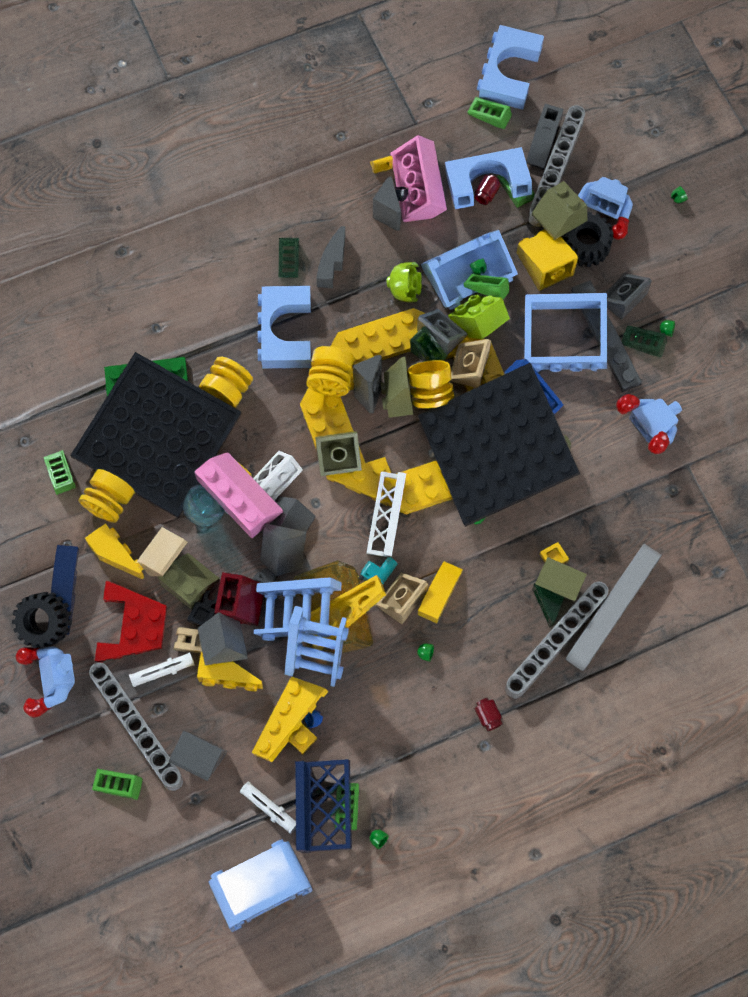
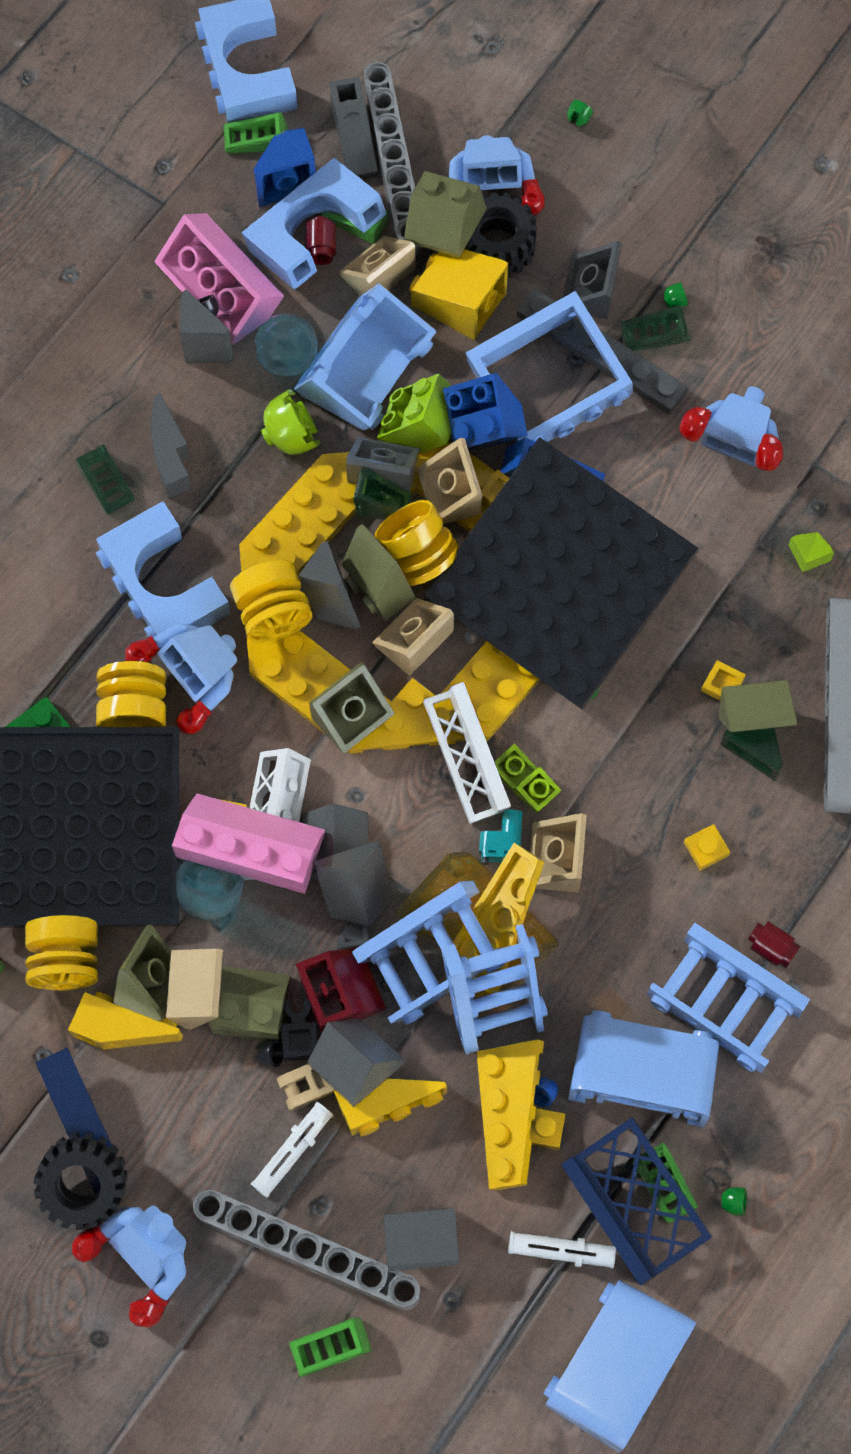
camera: 30 degrees left, 0 degrees up
(140, 531) = (145, 976): none -> olive slope
(141, 624) = (222, 1105): red wing -> none
(178, 610) = (270, 1053): none -> black hinge
(273, 381) = (198, 662): none -> light blue torso
(374, 738) = (645, 1067): none -> light blue windscreen
(382, 164) = (153, 282): yellow slope -> none
(399, 434) = (415, 634): none -> tan slope
(411, 546) = (526, 779): none -> lime slope
(425, 651) = (635, 910): green hinge -> none
(430, 236) = (286, 344): none -> clear light blue cylinder
(439, 592) = (604, 818): yellow slope -> none
(458, 711) = (729, 964): none -> light blue fence
(478, 266) = (376, 350): green hinge -> none
(487, 641) = (706, 847): none -> yellow plate
(488, 285) = (405, 368): bright green slope -> none
(490, 137) = (283, 166): none -> blue slope
(512, 222) = (382, 263): none -> tan slope
(513, 333) = (484, 412): none -> blue slope
(551, 648) = (794, 806): light grey beam -> none
(651, 511) = (810, 550): none -> lime slope

